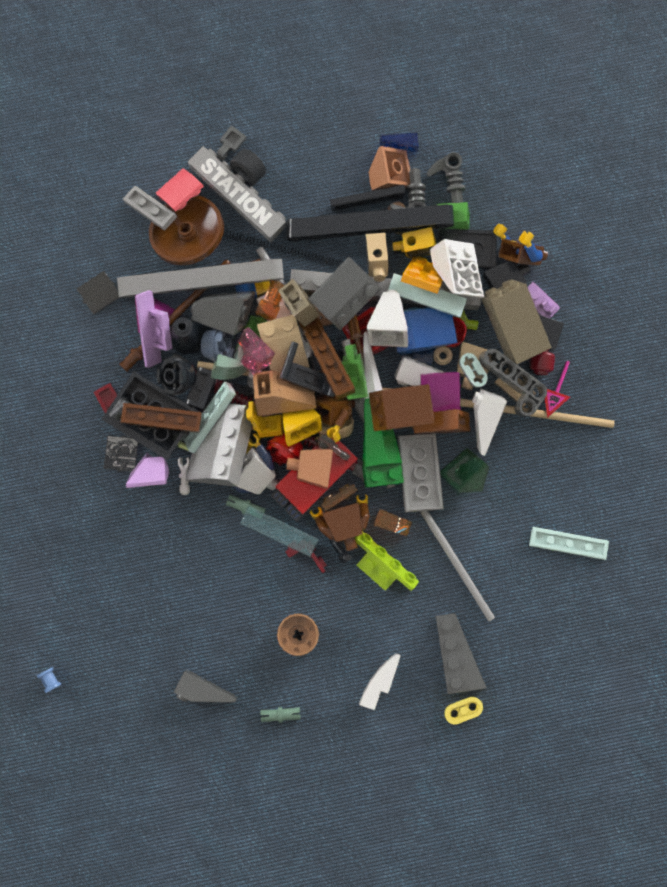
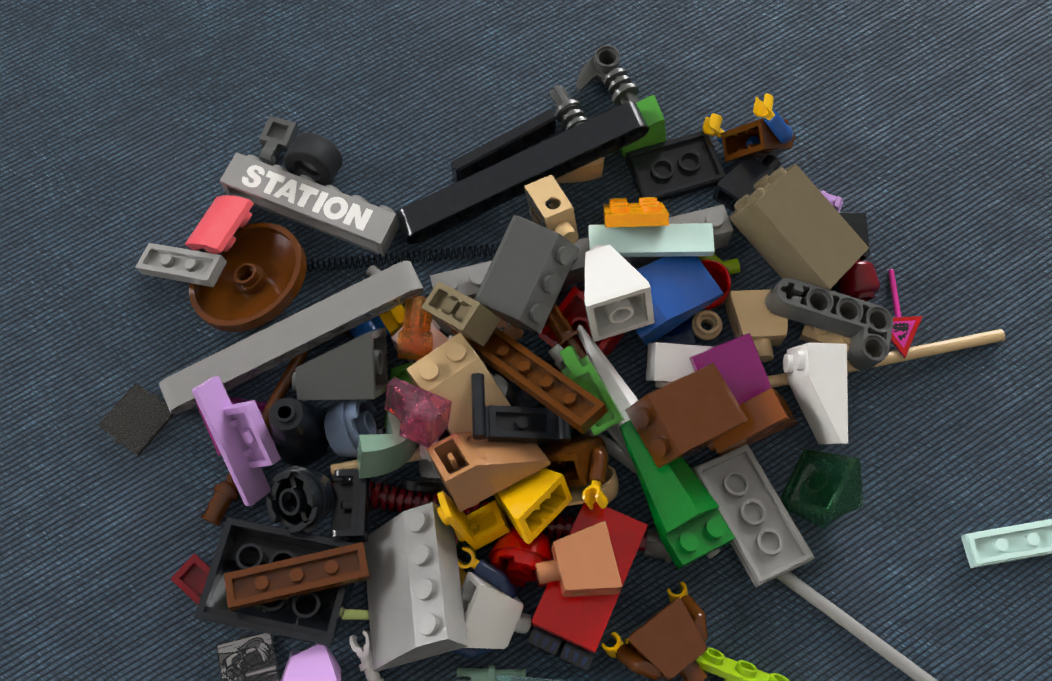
camera: 20 degrees left, 15 degrees down
(210, 416) = (380, 546): light aqua tile -> none
(325, 442) = (586, 515): clear smoke plate -> none
(345, 492) = (629, 614): clear orange plate -> none
(389, 169) = (518, 97): nougat slope -> none
(392, 523) = (742, 613): clear orange leg -> none
(403, 141) = (525, 59): clear blue slope -> none
(423, 239) = (603, 179): yellow torso -> none
(457, 267) = (678, 182): white slope -> none
(476, 367) = (766, 325): light aqua beam -> none

